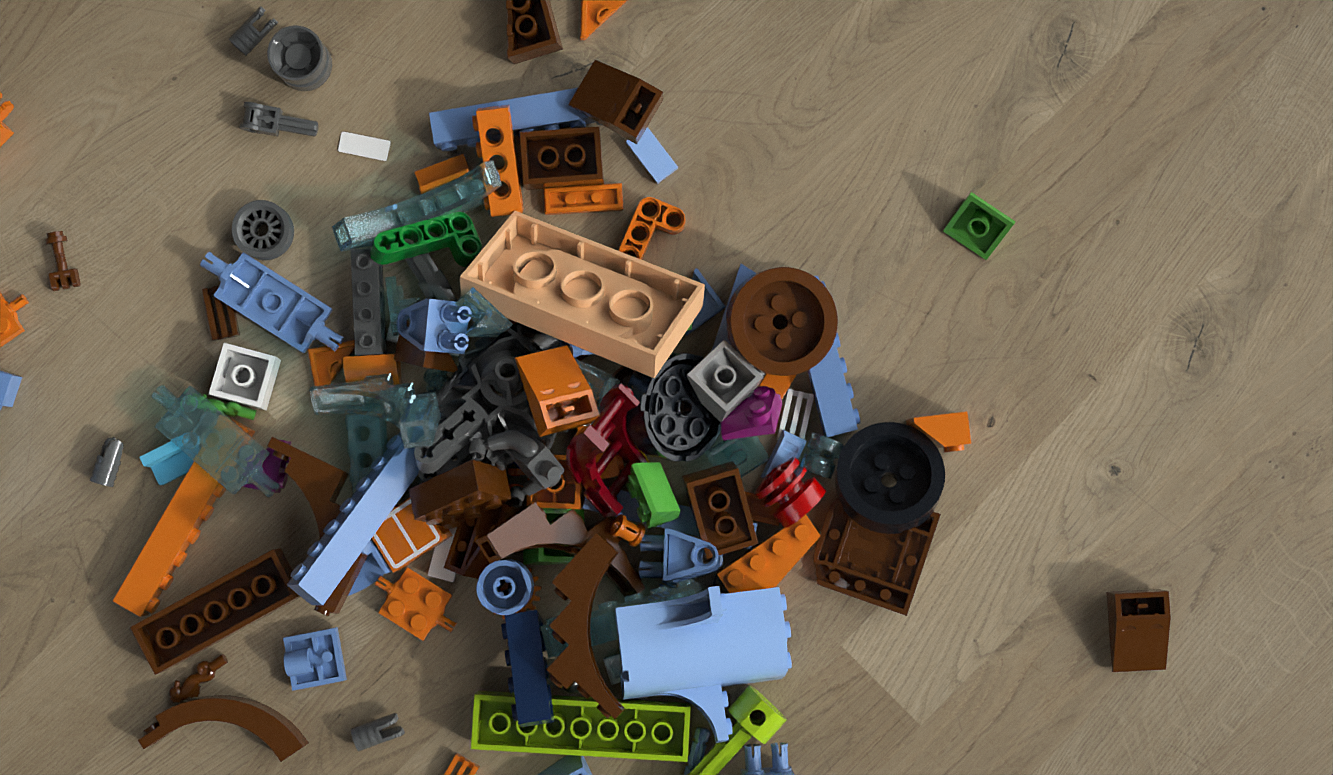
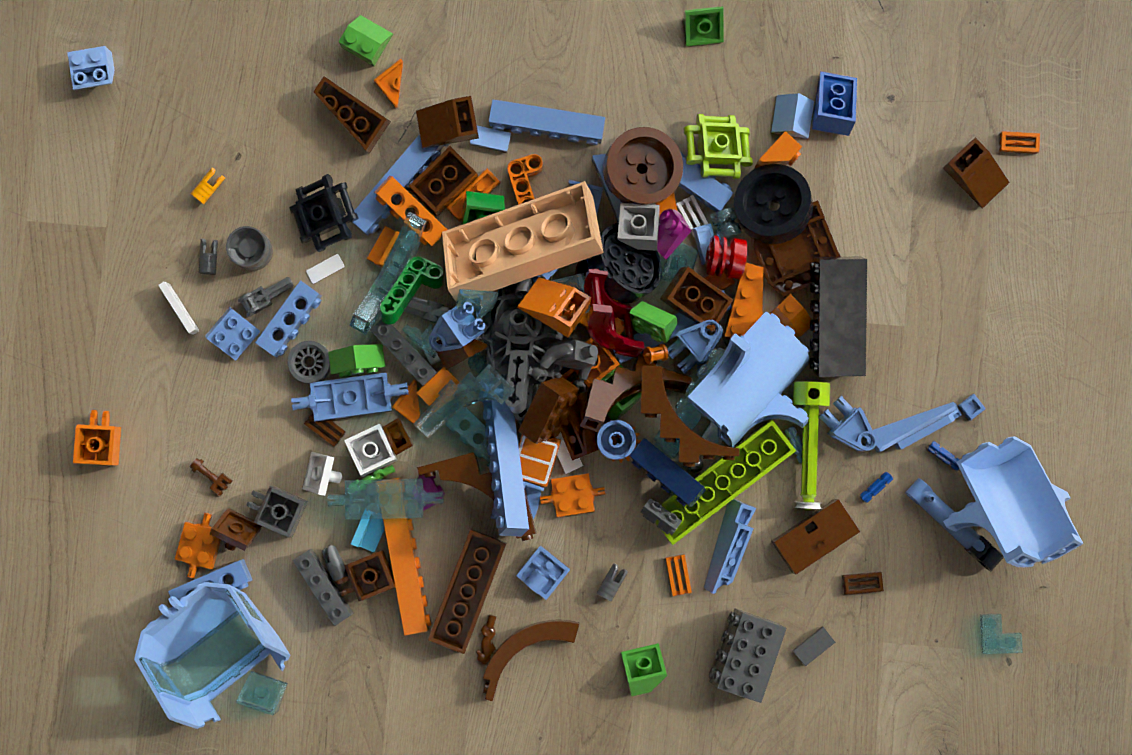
camera: 45 degrees left, 0 degrees up
(35, 340) = (235, 530): none -> reddish brown tile
(73, 475) = (323, 587): none -> dark grey brick
(84, 353) = (269, 515): none -> dark grey hinge
(116, 511) = (364, 586): none -> reddish brown hinge
(171, 356) = (320, 473): none -> white tile
(176, 59) = (179, 308): none -> white tile
(207, 132) = (232, 333): none -> medium blue plate
(238, 170) = (278, 323): none -> medium blue brick
(285, 386) = (397, 436): none -> reddish brown slope
(310, 268) = (356, 359): none -> bright green brick
(409, 85) = (323, 212): none -> black brick
(486, 720) = (668, 521): none -> dark grey hinge
(579, 217) = (481, 205): none -> green slope
(725, 187) = (547, 122): none -> medium blue brick
(806, 613) = (793, 315): none -> orange slope
(855, 658) = (838, 316): none -> black brick
(884, 365) = (718, 144): none -> lime brick
(993, 400) = (792, 115): none -> light blue slope
(1049, 426) = (835, 104): none -> blue slope
(1196, 620) = (1003, 142): none -> orange tile

